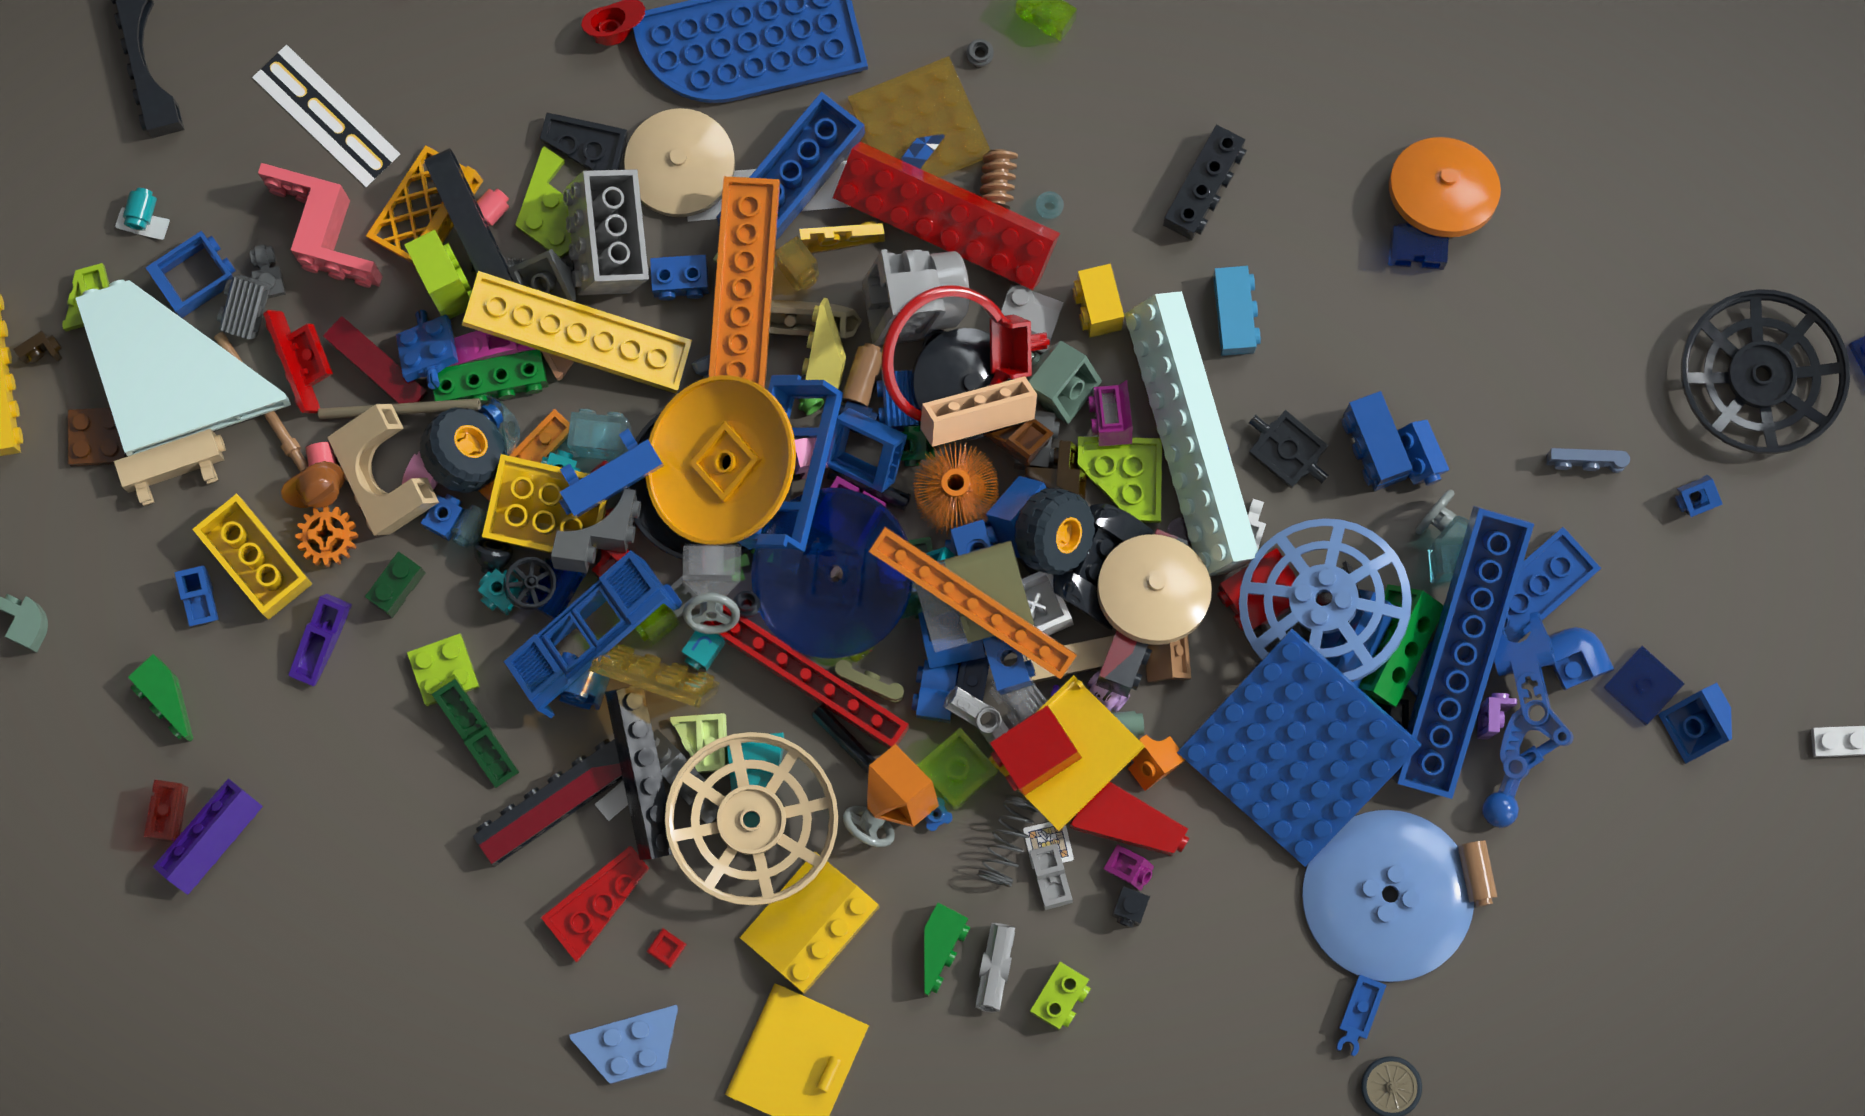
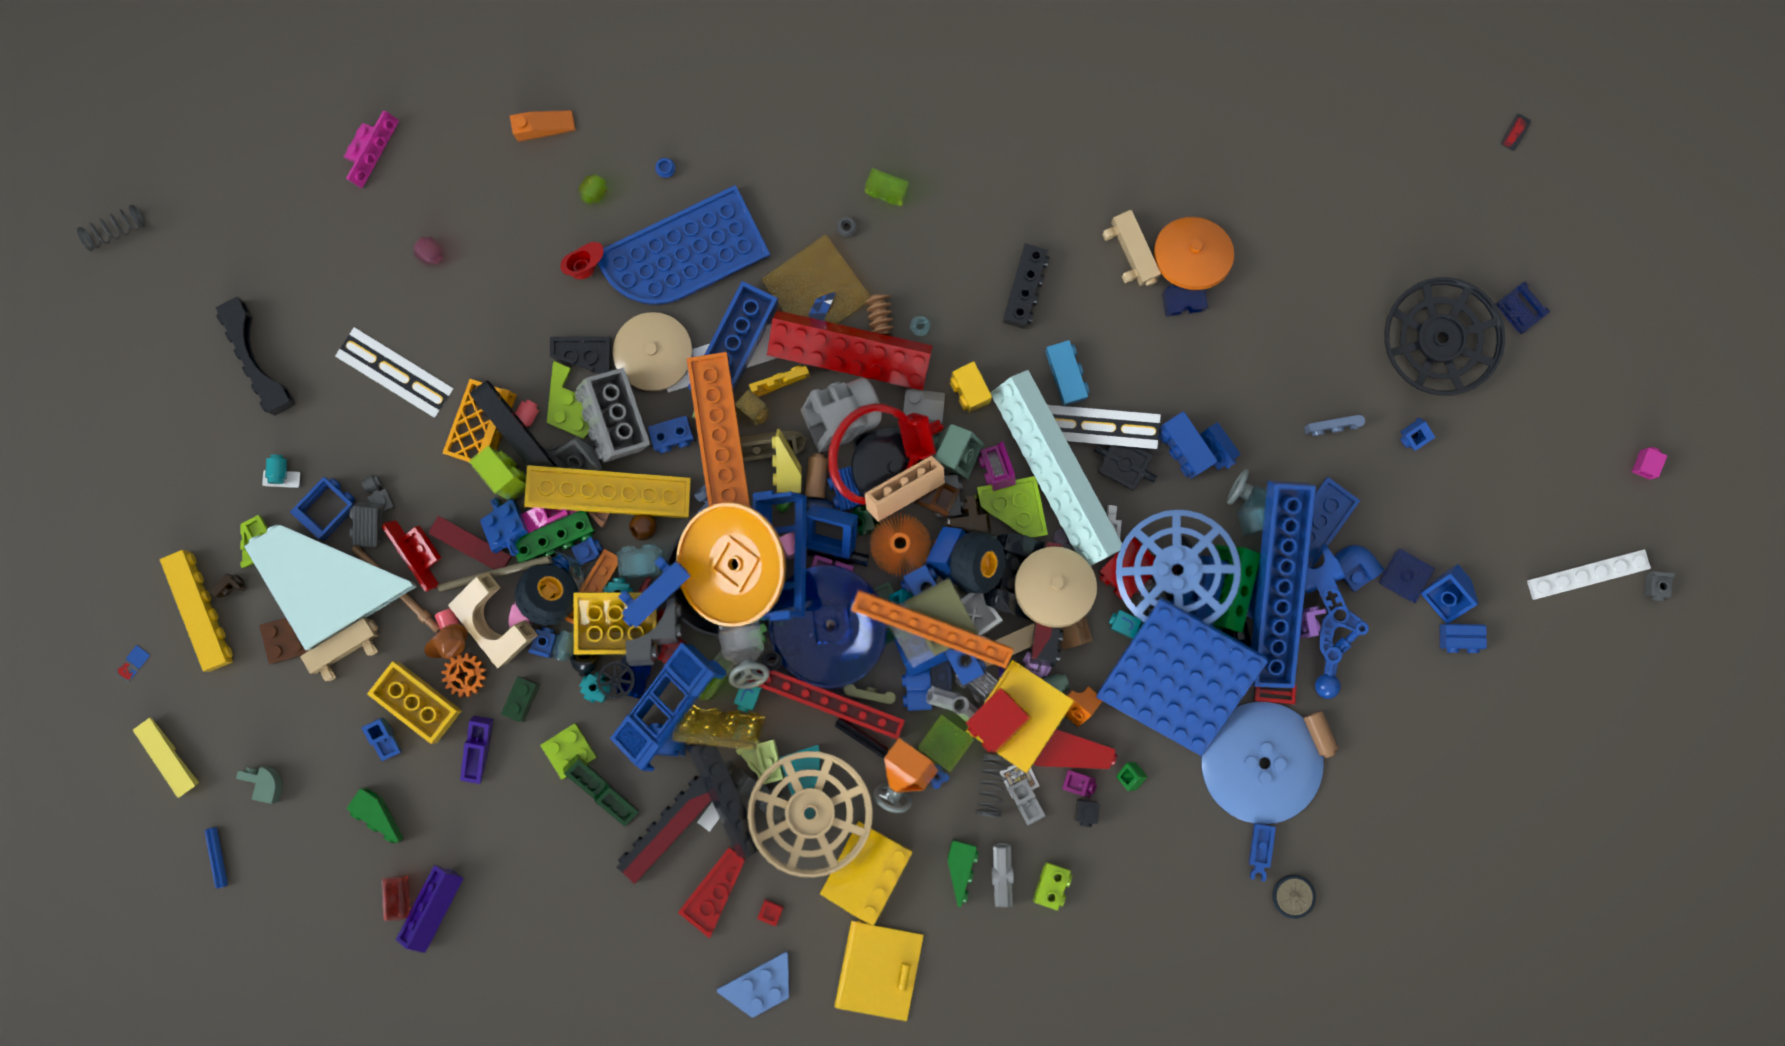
camera: 15 degrees left, 5 degrees up
(320, 225) = (407, 454): coral bracket -> none
(531, 407) = (587, 550): none -> blue bracket
(613, 391) = (643, 527): none -> reddish brown piece
(1203, 873) = (1131, 776): none -> green slope
(1237, 662) = (1124, 624): none -> teal brick
(1274, 393) = (1107, 426): none -> sticker
(1366, 164) = (1135, 248): none -> tan brick
(1426, 815) = (1257, 691): none -> red tile
(1703, 785) = (1463, 637): none -> blue brick

